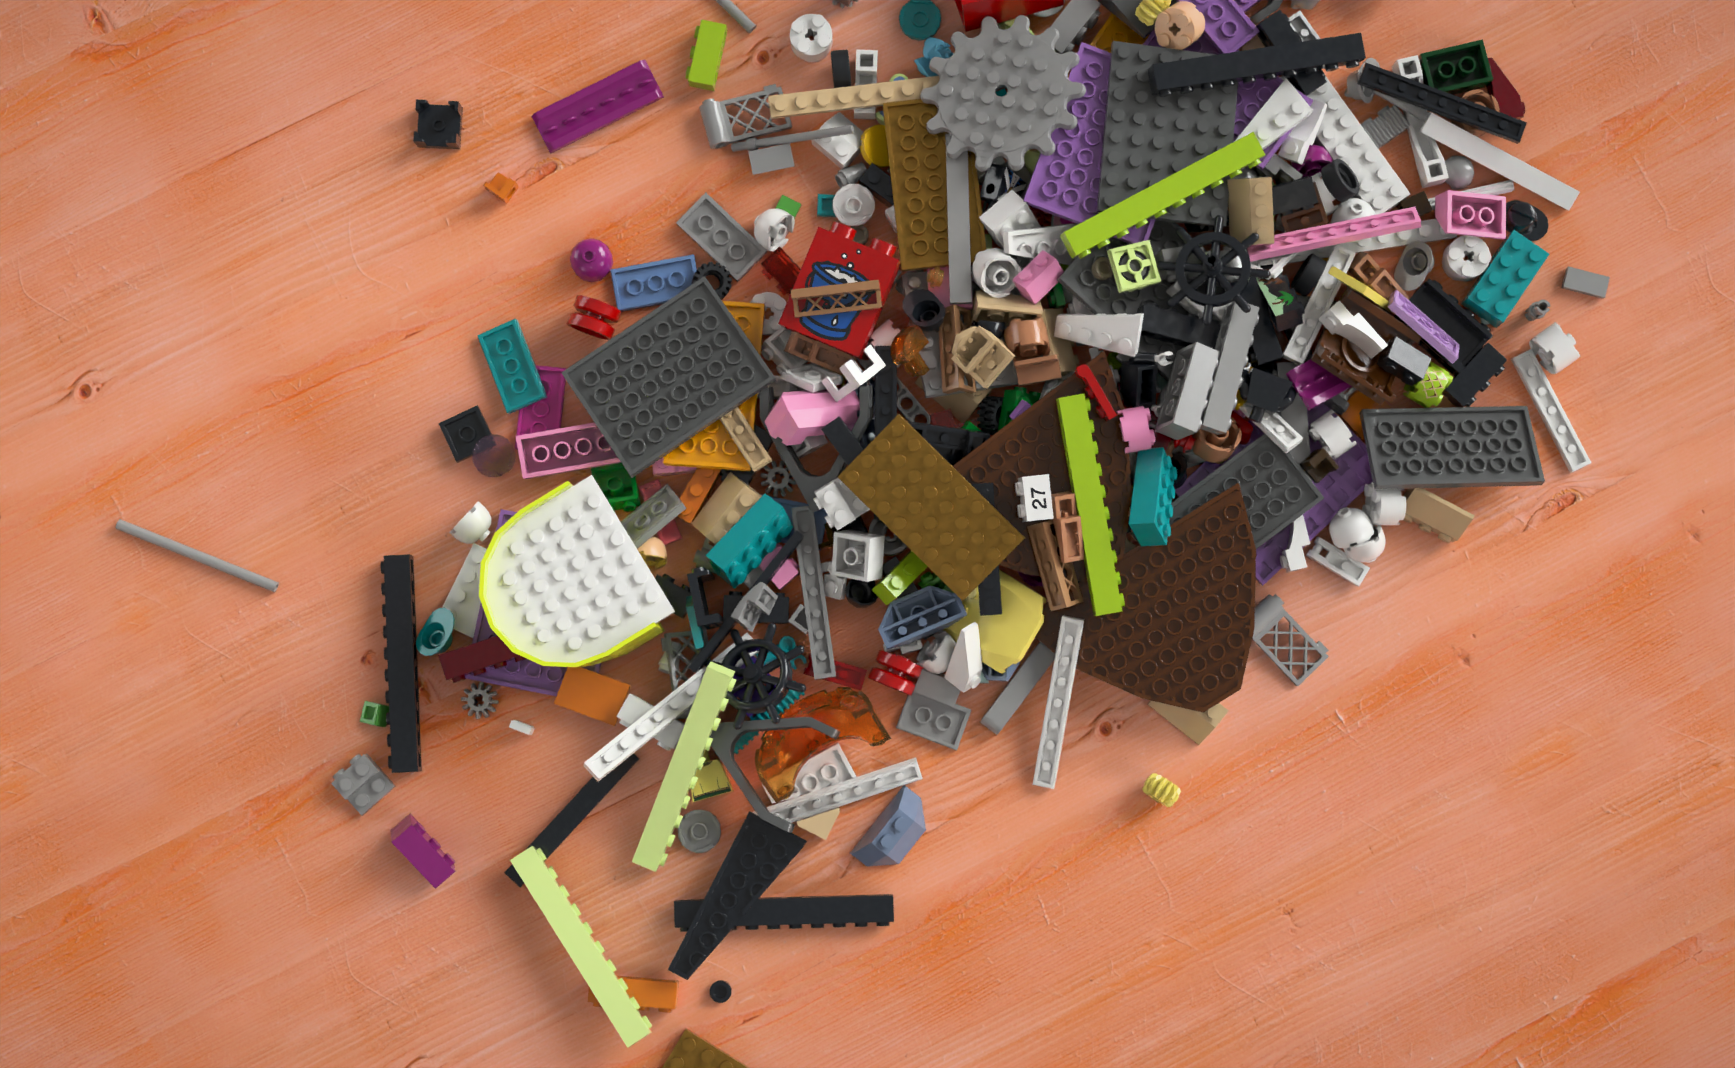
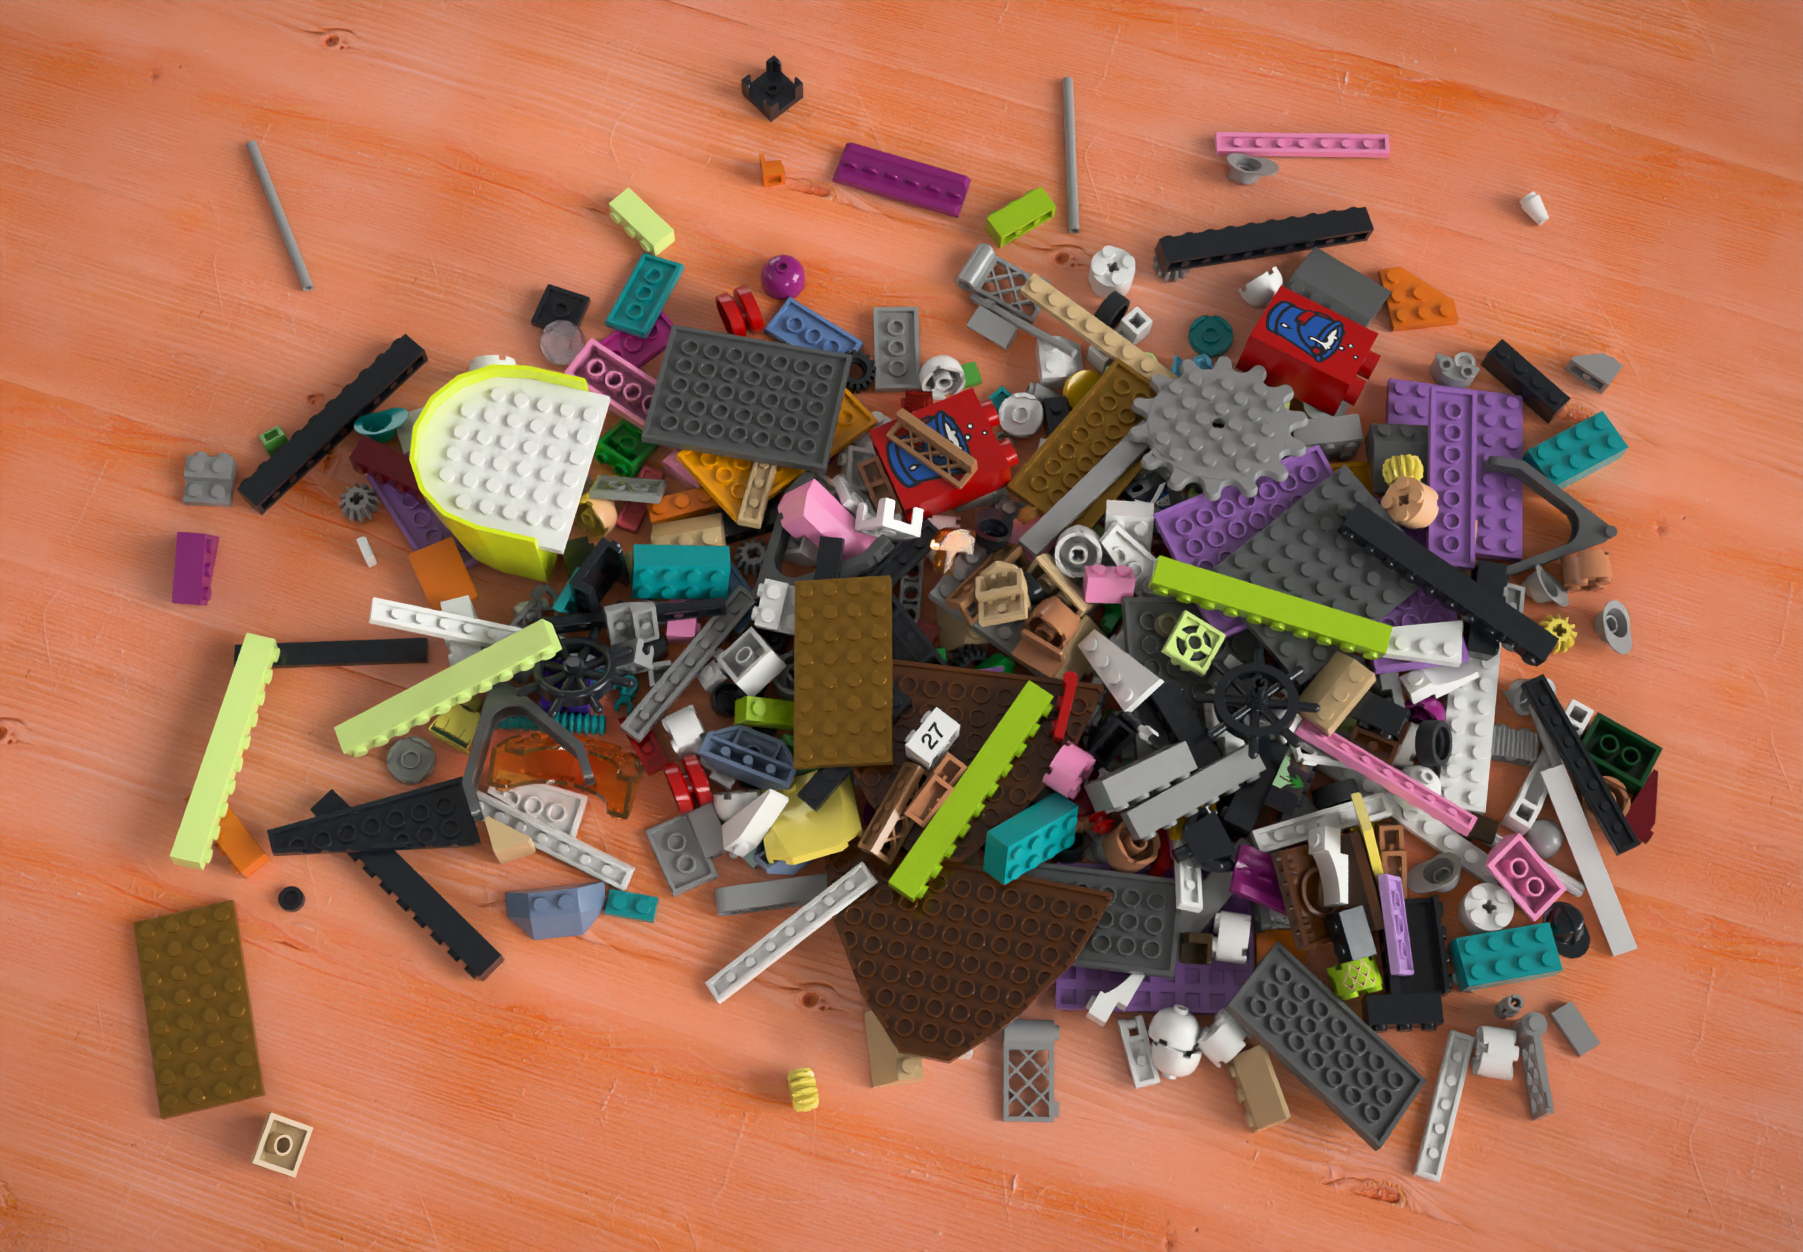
camera: 40 degrees right, 15 degrees down
(453, 315) = (641, 222): none -> yellowish green brick
(782, 625) = (637, 661): none -> light grey hinge
(859, 639) = (685, 731): none -> white brick
(937, 782) = (631, 906): none -> teal plate
(1340, 12) = (1561, 630): none -> light yellow gear
(1566, 315) = (1528, 1036): none -> light grey piece

